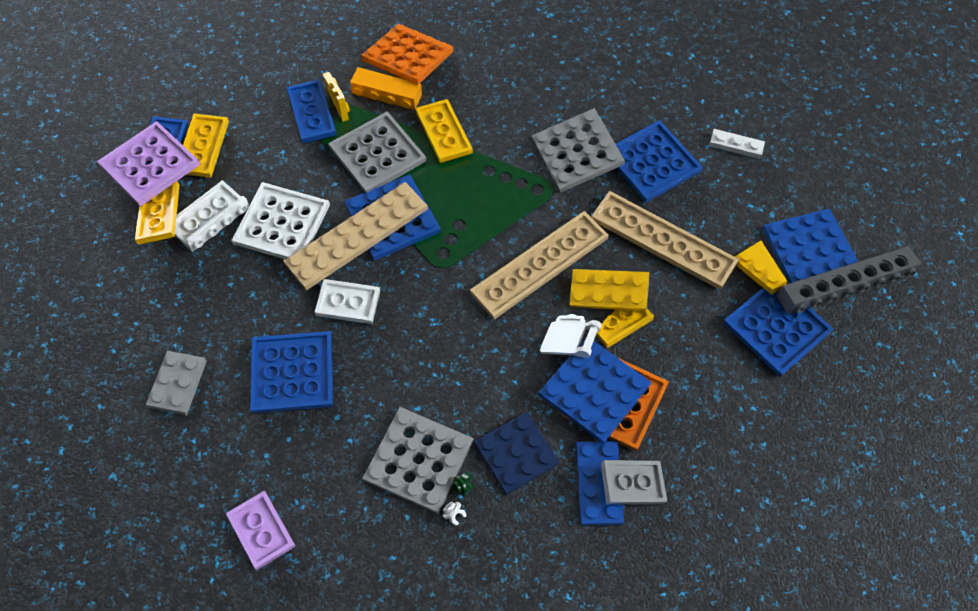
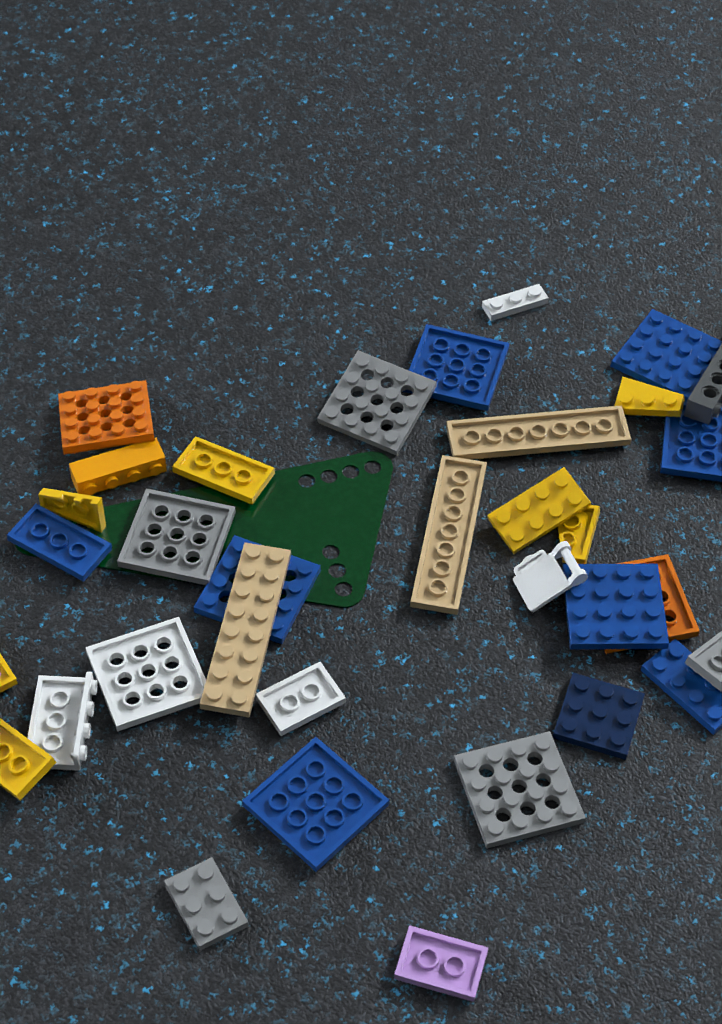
camera: 40 degrees left, 10 degrees down
(451, 510) = (596, 807): white plate -> none
(461, 484) = (581, 777): dark green plate -> none

